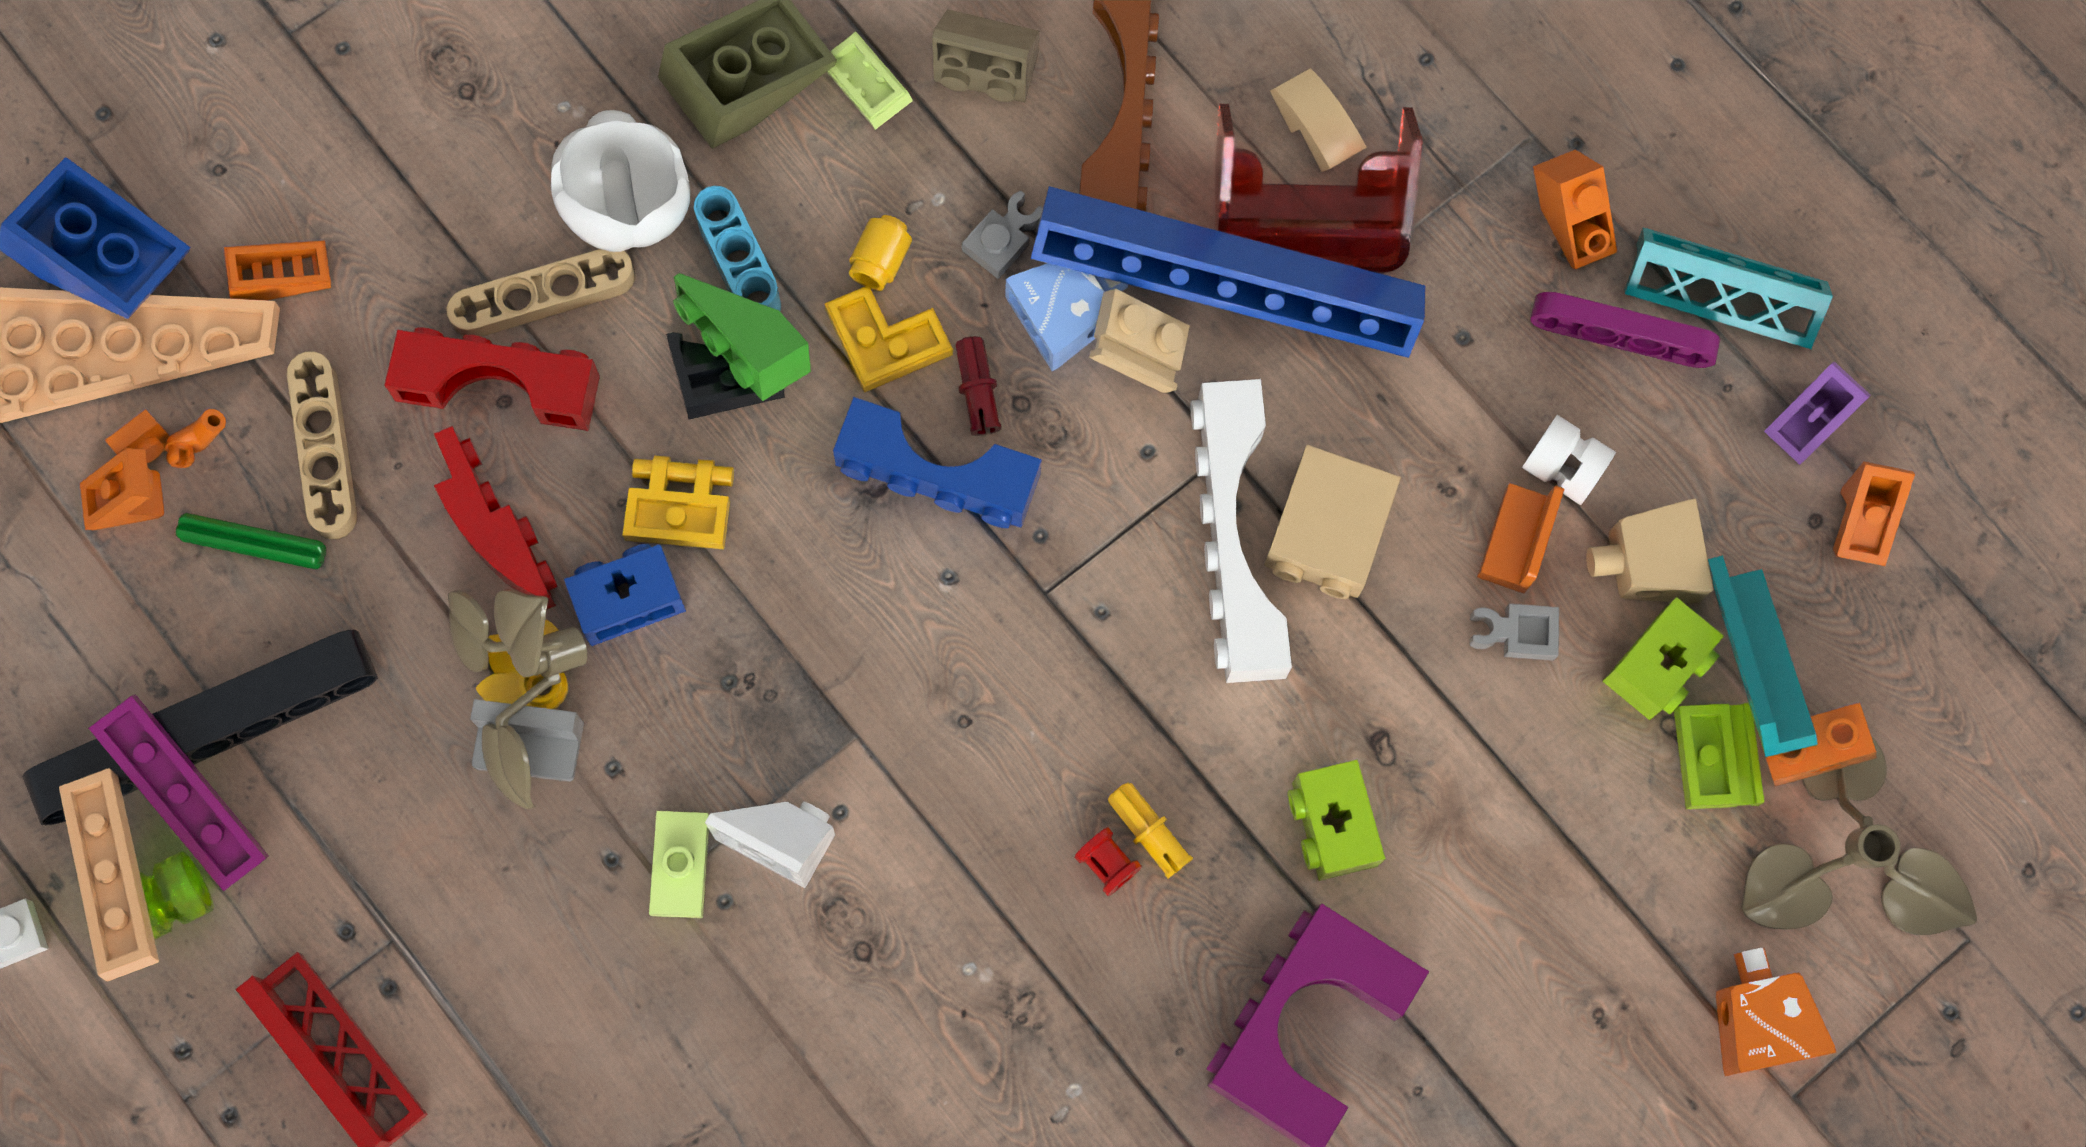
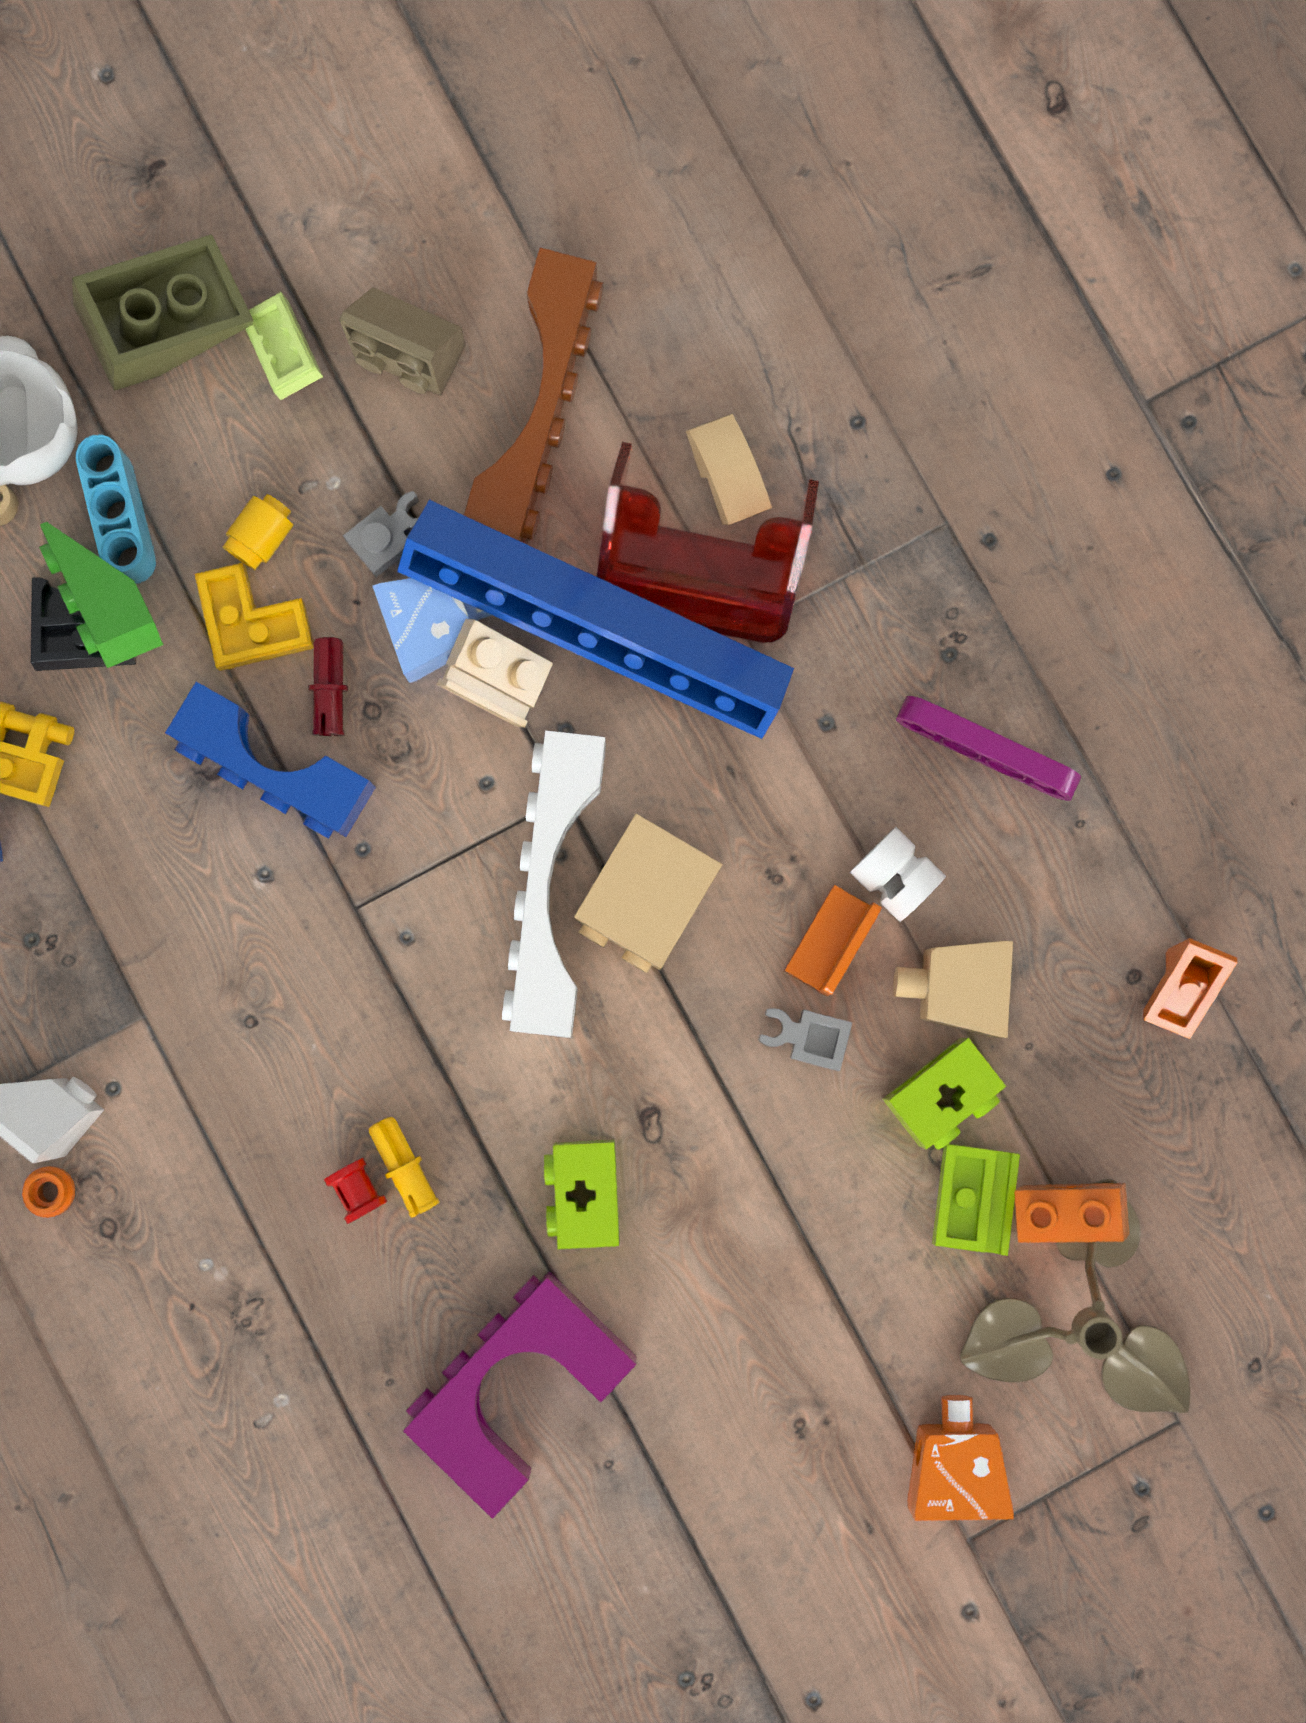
camera: 10 degrees right, 10 degrees up
(790, 908) = (33, 1191): none -> orange plate
(1576, 207) = (969, 610): orange slope -> none
(1731, 270) = (1112, 706): teal fence -> none
(1763, 660) = (1036, 1120): teal fence -> none
(1817, 412) = (1159, 872): medium lavender slope -> none

